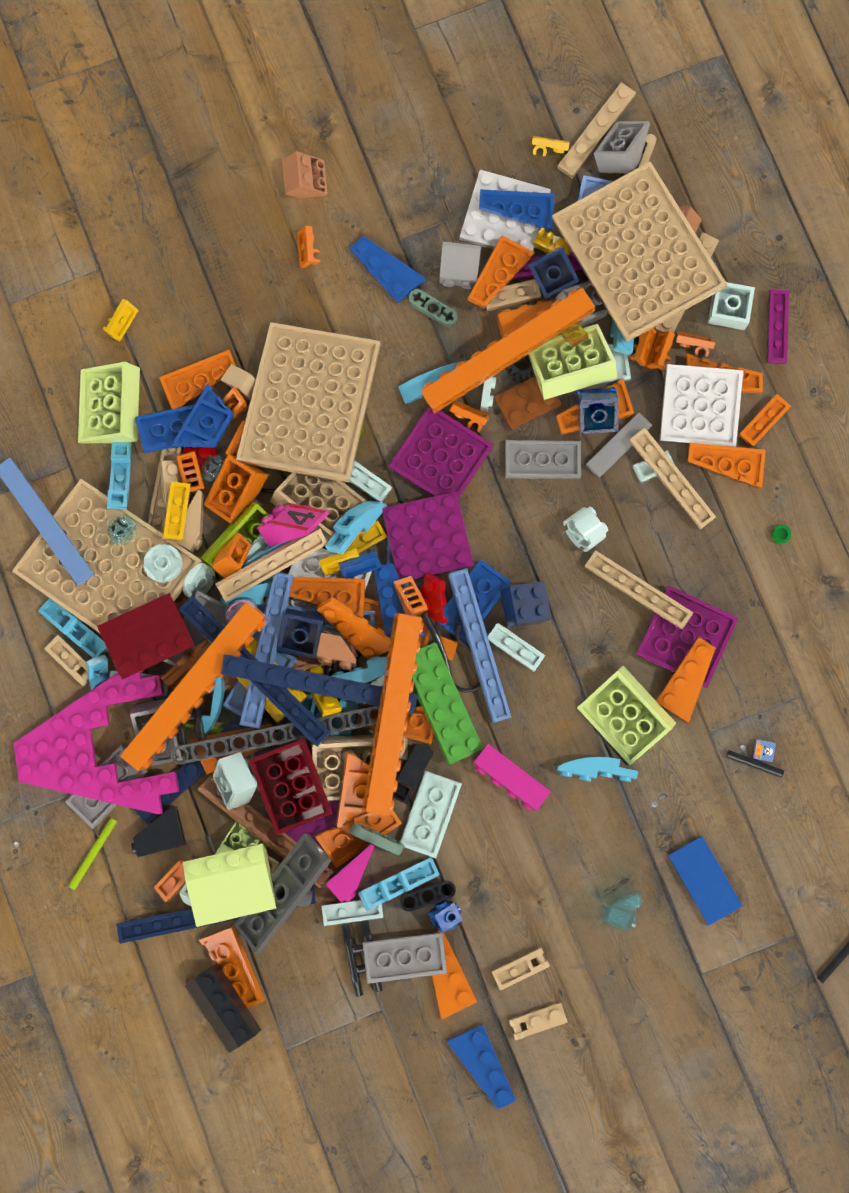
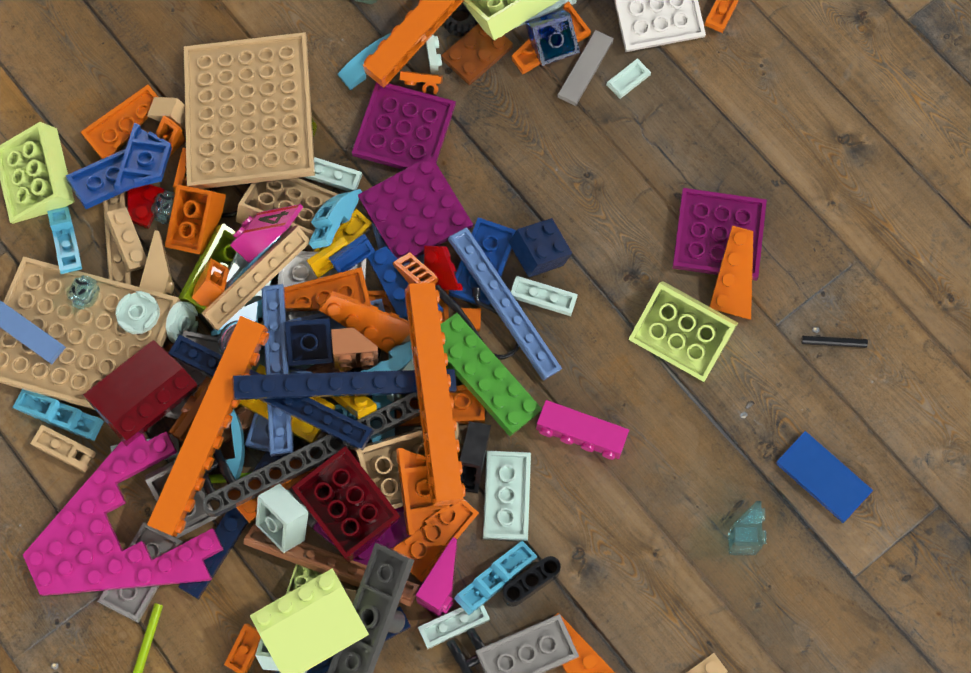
camera: 15 degrees left, 10 degrees down
(97, 671) = (95, 449): medium azure slope -> none
(121, 320) = (23, 87): yellow plate -> none
(160, 835) = (215, 605): black slope -> none
(176, 511) = (137, 256): yellow plate -> none
(200, 486) = (132, 199): orange slope -> none
(376, 838) = (459, 534): sand green beam -> none
(445, 916) = (557, 595): blue brick -> none
(519, 969) = (656, 630): tan plate -> none
(542, 459) = (511, 103): light grey tile -> none
(585, 528) = (578, 155): light aqua brick -> none
(589, 767) = (661, 394): medium azure slope -> none
(639, 590) = (654, 200): tan plate -> none
(672, 478) = (651, 82): tan plate -> none
(734, 462) = (711, 50): orange wing -> none
(763, 750) = (839, 325): medium blue tile -> none
(781, 534) = (781, 107): green tile -> none

